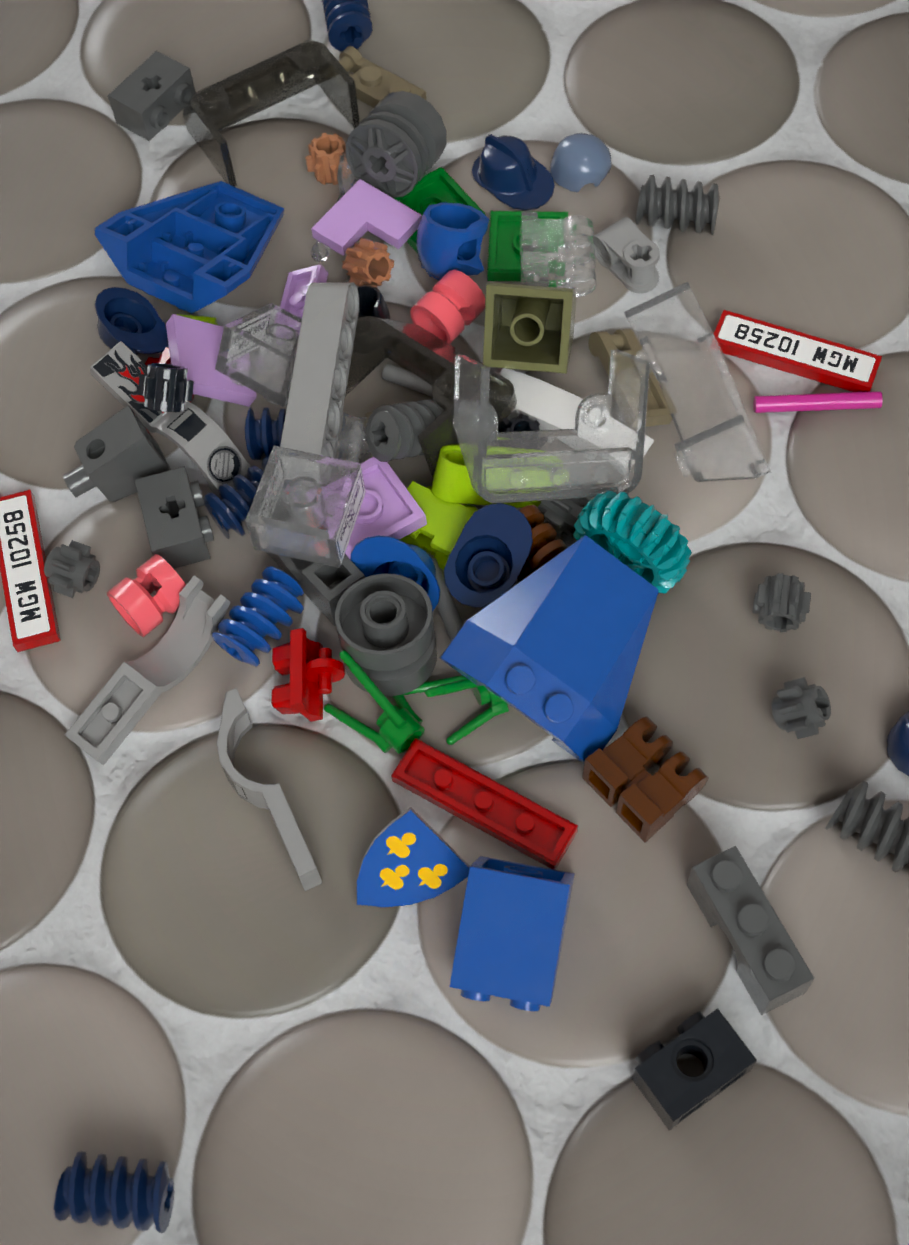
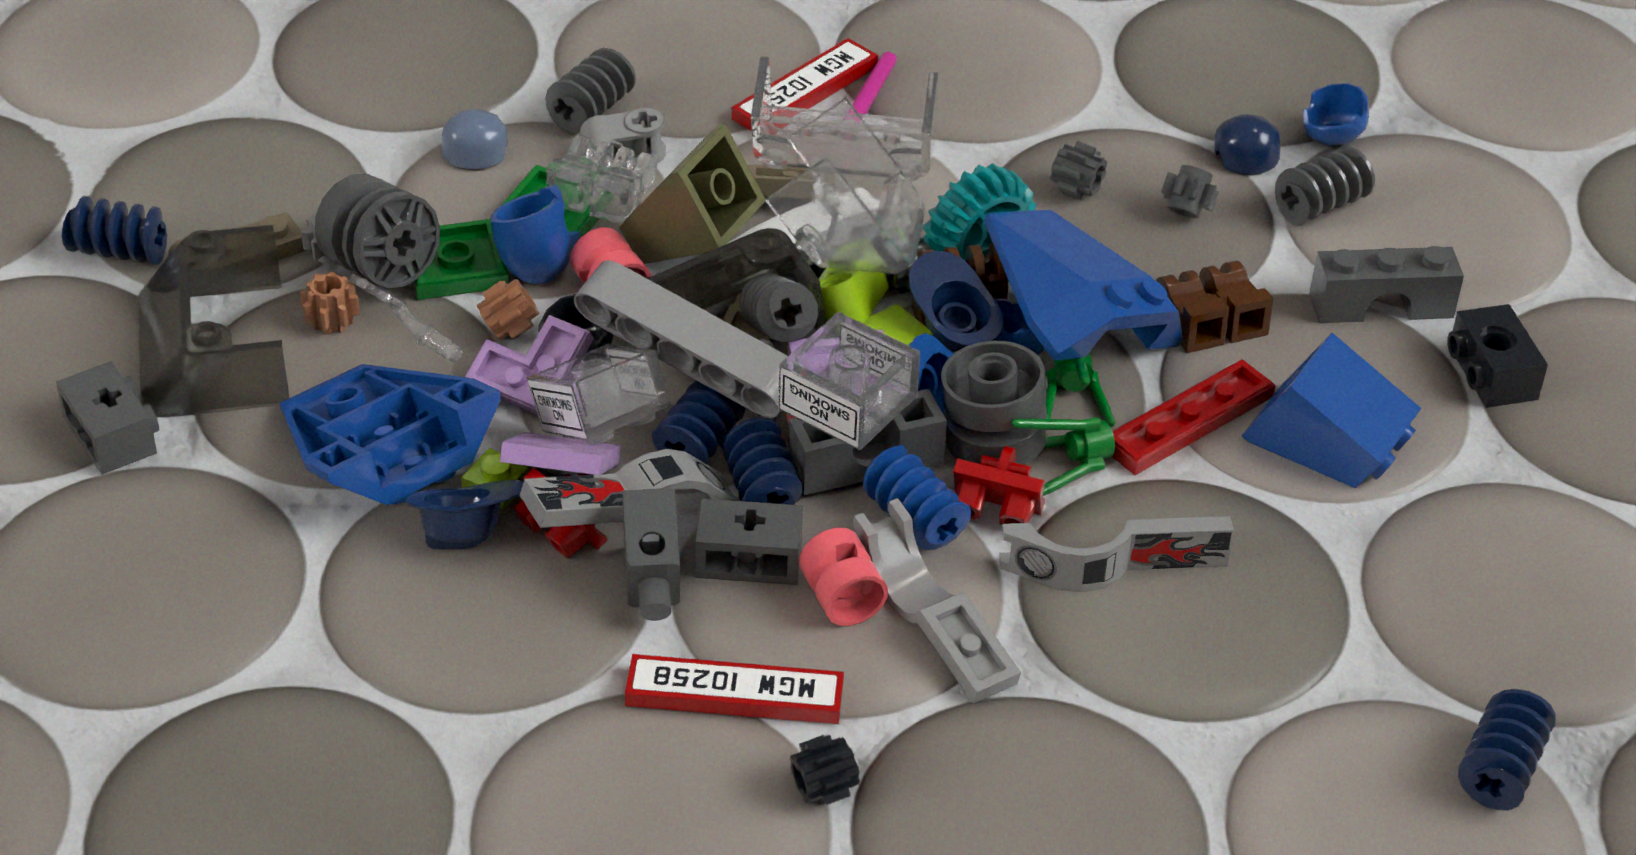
camera: 75 degrees left, 20 degrees down
(72, 569) = (770, 633): dark grey gear -> none
(165, 387) = (620, 453): black gear -> none
(362, 211) = (440, 293): lavender tile -> none
(408, 865) = (1241, 465): blue shield -> none
(512, 173) = (452, 185): dark blue piece -> none

